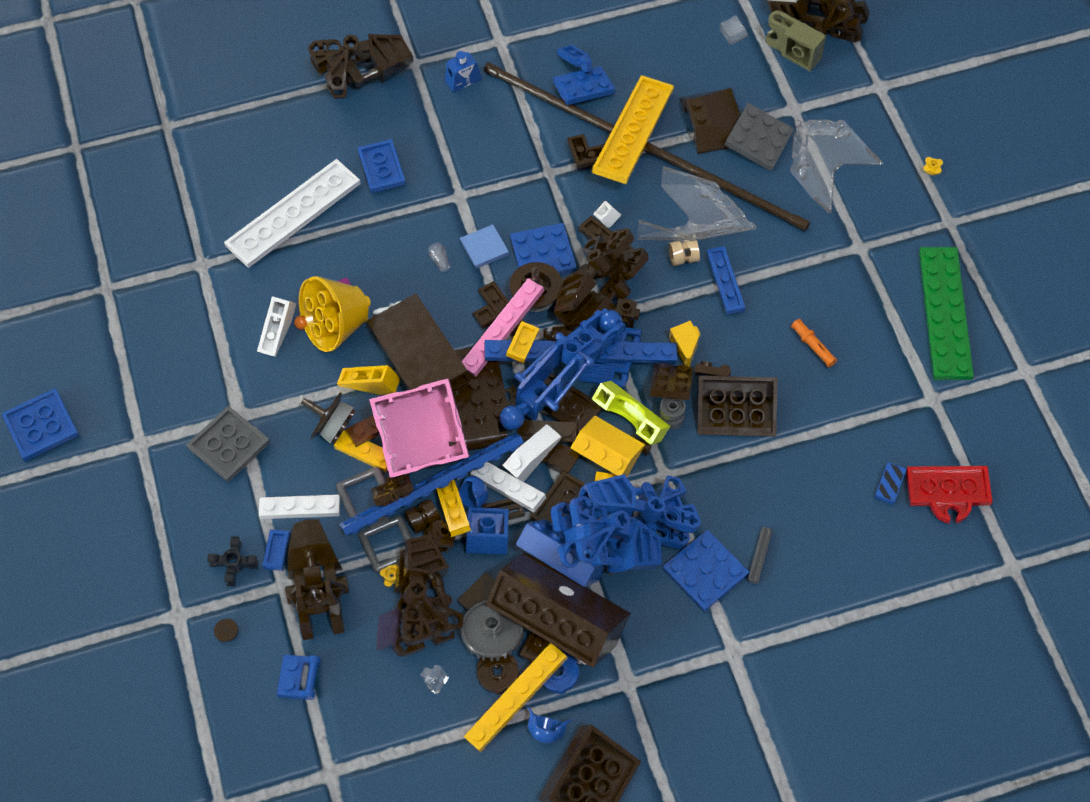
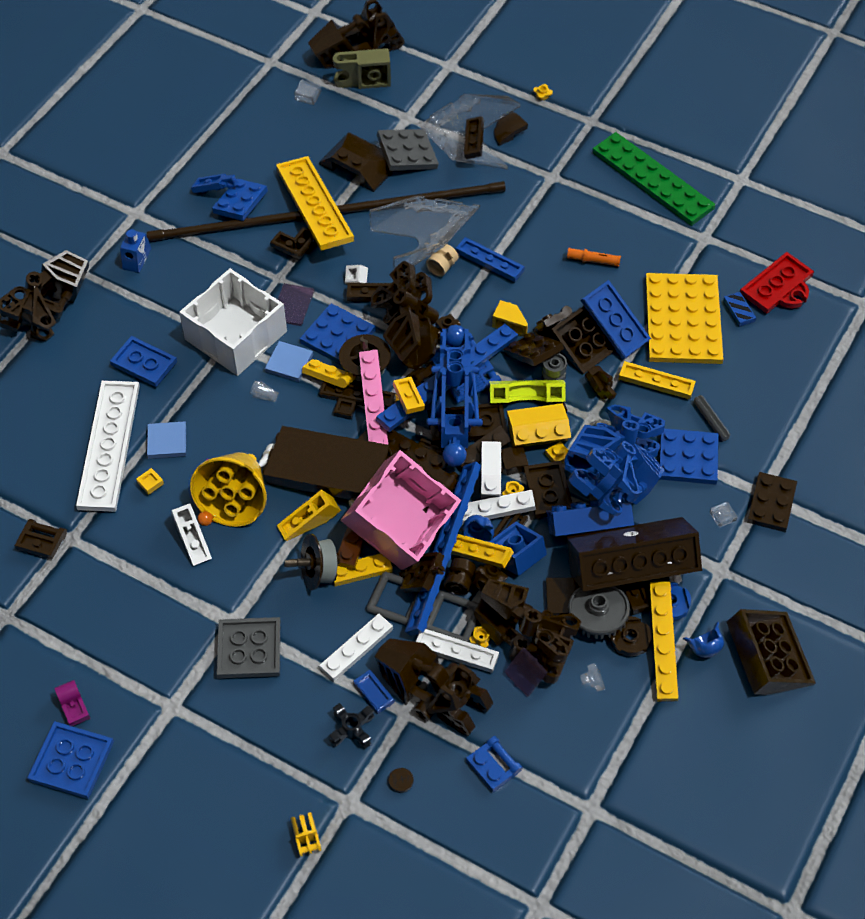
camera: 45 degrees left, 5 degrees down
(80, 384) = (72, 703): none -> magenta plate
(124, 608) = (306, 836): none -> yellow arm
(174, 251) = (38, 543): none -> dark brown plate
(291, 263) = (150, 481): none -> yellow plate
(336, 240) = (166, 440): none -> medium blue tile
(363, 570) = (459, 650): none -> white plate
(469, 183) = (233, 321): none -> white tile
(498, 277) = (328, 373): none -> yellow plate
(536, 202) = (296, 302): none -> clear purple piece
(538, 478) = (513, 486): none -> yellow plate
(679, 640) = (723, 514): none -> clear plate
(699, 452) = (600, 382): none -> dark brown rock
(731, 664) = (772, 502): none -> dark brown plate
(749, 487) = (657, 380): none -> yellow plate
(764, 409) = (615, 319): none -> blue piece
(820, 165) = (474, 137): none -> dark brown plate
(833, 453) = (683, 318): none -> yellow plate
(867, 176) = (508, 127): none -> dark brown brick

